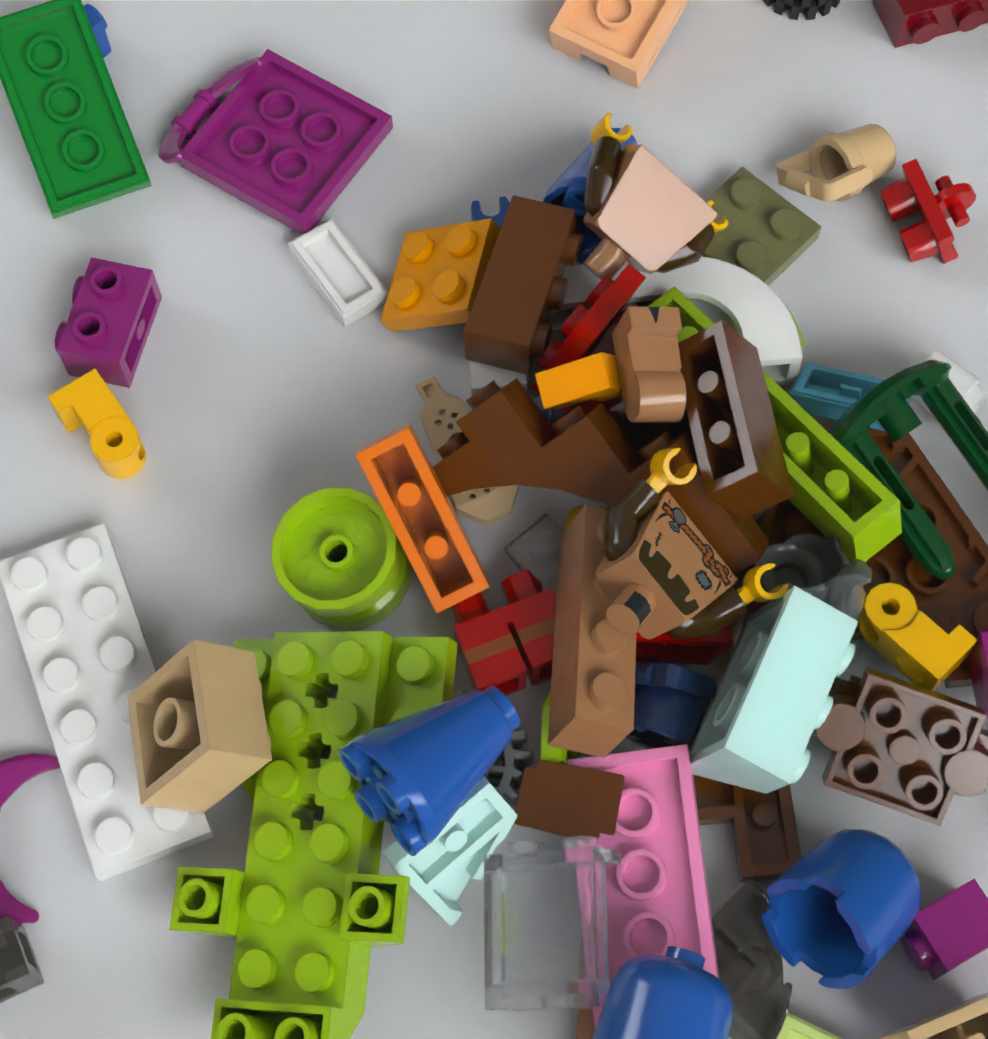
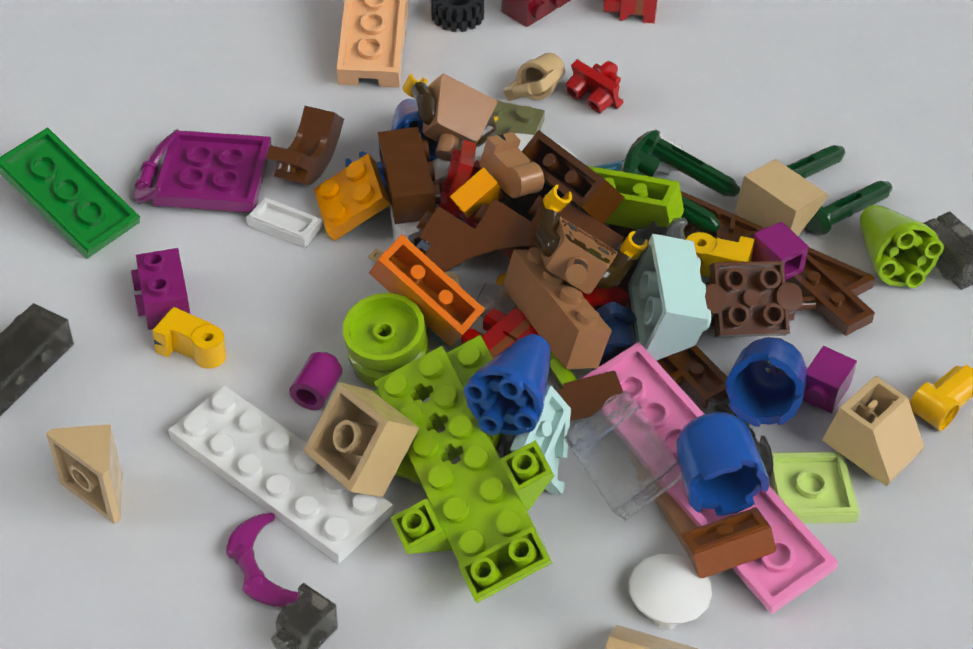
camera: 30 degrees left, 20 degrees down
(224, 573) = (316, 380): none -> magenta brick
(430, 166) = (311, 147): none -> reddish brown arch

